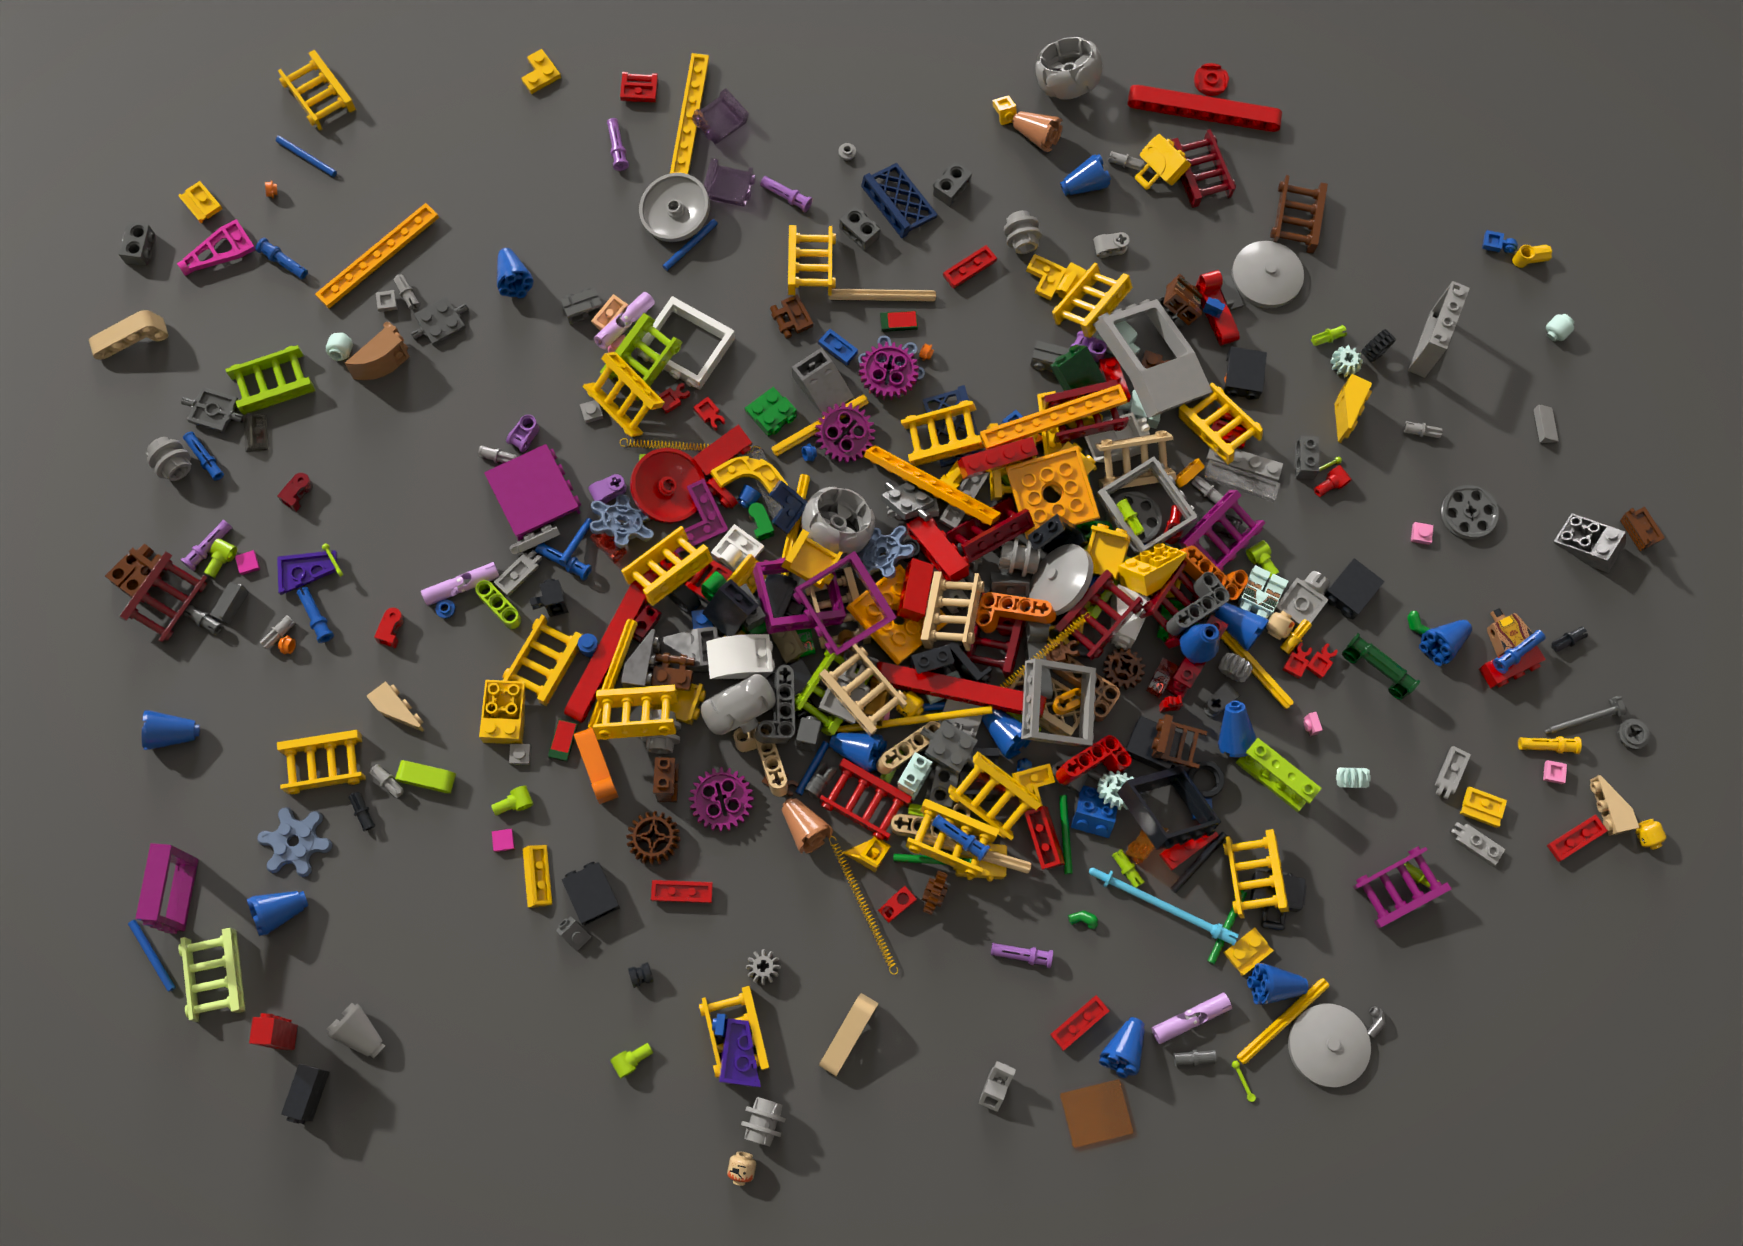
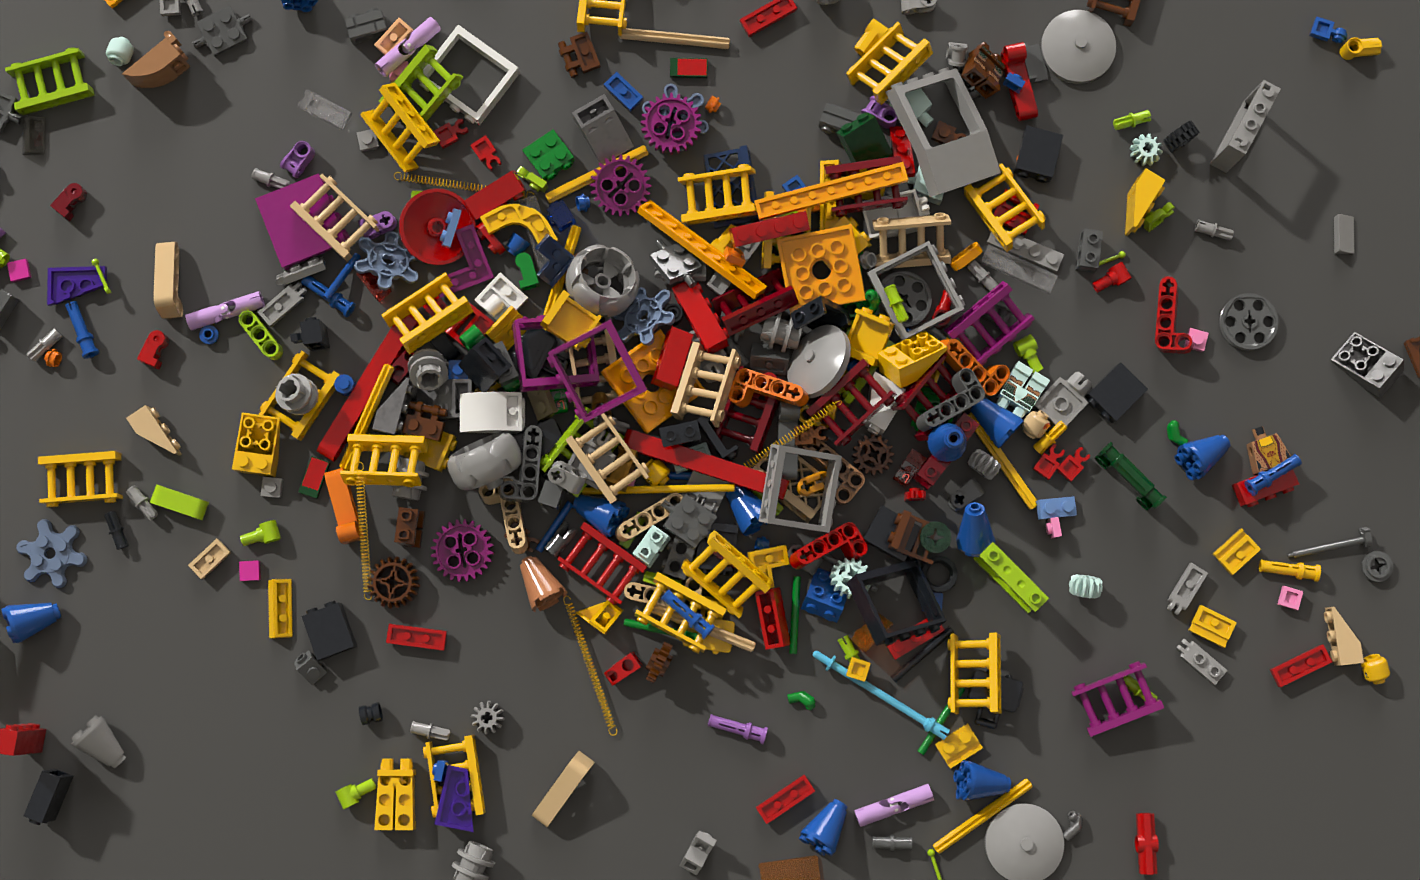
camera: 10 degrees right, 10 degrees up
(400, 559) = (166, 280): none -> tan beam
(460, 831) = (209, 558): none -> tan plate
(541, 655) = (296, 394): none -> light grey piece
(546, 385) = (325, 109): none -> clear plate
(562, 500) = (331, 234): none -> tan fence
(620, 783) = (363, 529): none -> yellow piece
(672, 620) = (427, 369): none -> light grey piece
(678, 1042) = (395, 787): none -> yellow hips
(680, 491) = (452, 220): none -> medium blue plate
(704, 987) = (430, 731): none -> light grey axle
(760, 436) = (535, 182): none -> lime plate
(789, 466) = (560, 215): none -> clear blue brick
(826, 712) = (569, 477): none -> light grey piece
(965, 488) = (734, 256): none -> orange plate
(1050, 275) = (850, 28): yellow plate -> none
(1096, 481) = (868, 260): none -> light grey plate
(1106, 515) = (873, 299): none -> green arm
(1138, 880) = (858, 669): none -> yellow plate
(1154, 287) = (956, 54): none -> light grey piece
(1203, 733) = (942, 530): none -> clear green gear
(1311, 703) = (1056, 508): none -> medium blue plate
(1366, 422) = (1156, 217): none -> lime plate
(1395, 527) = (1170, 314): none -> red beam
(1453, 1032) = (1146, 843): none -> red piece
(1494, 731) = (1236, 551): none -> yellow plate
(1560, 327) = (1376, 131): light aqua head -> none
(1569, 639) = (1328, 464): black axle -> none

